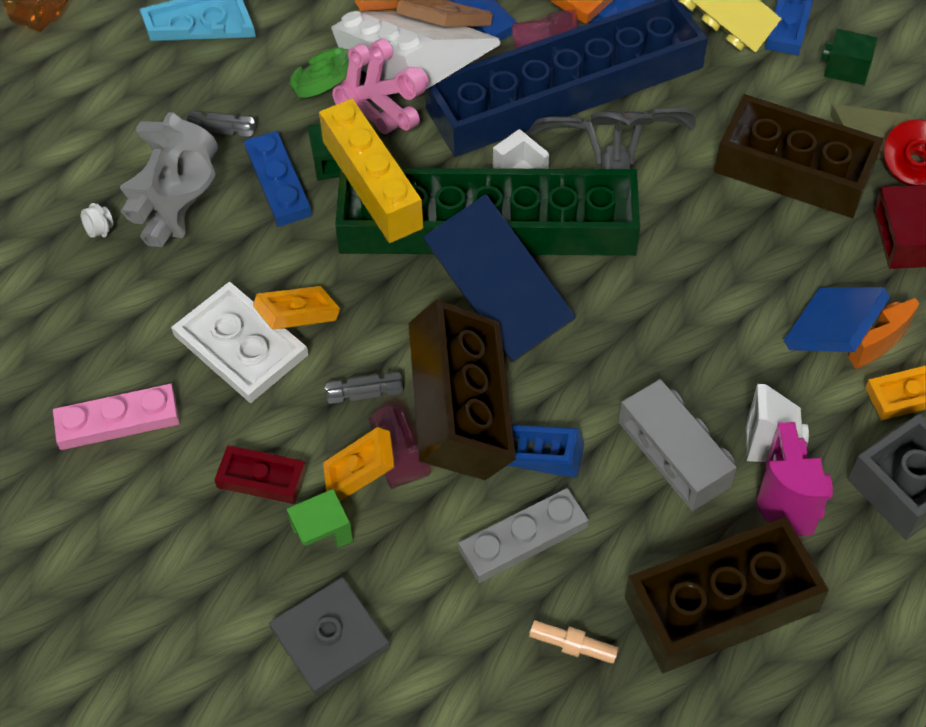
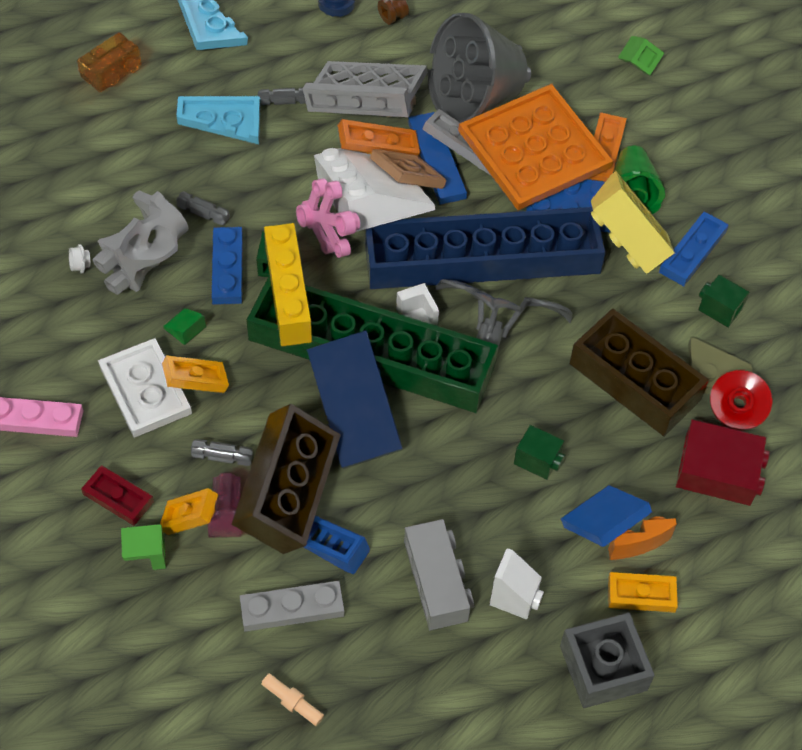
camera: 15 degrees right, 0 degrees up
(257, 258) = (185, 325): none -> green slope
(324, 73) = (293, 191): bright green tile -> none
(329, 636) = (117, 634): dark grey plate -> none
(536, 30) = (474, 204): clear pink piece -> none
(725, 594) = (418, 702): dark brown brick -> none
(729, 275) = (539, 452): none -> dark green brick
(793, 483) = (505, 637): dark pink brick -> none

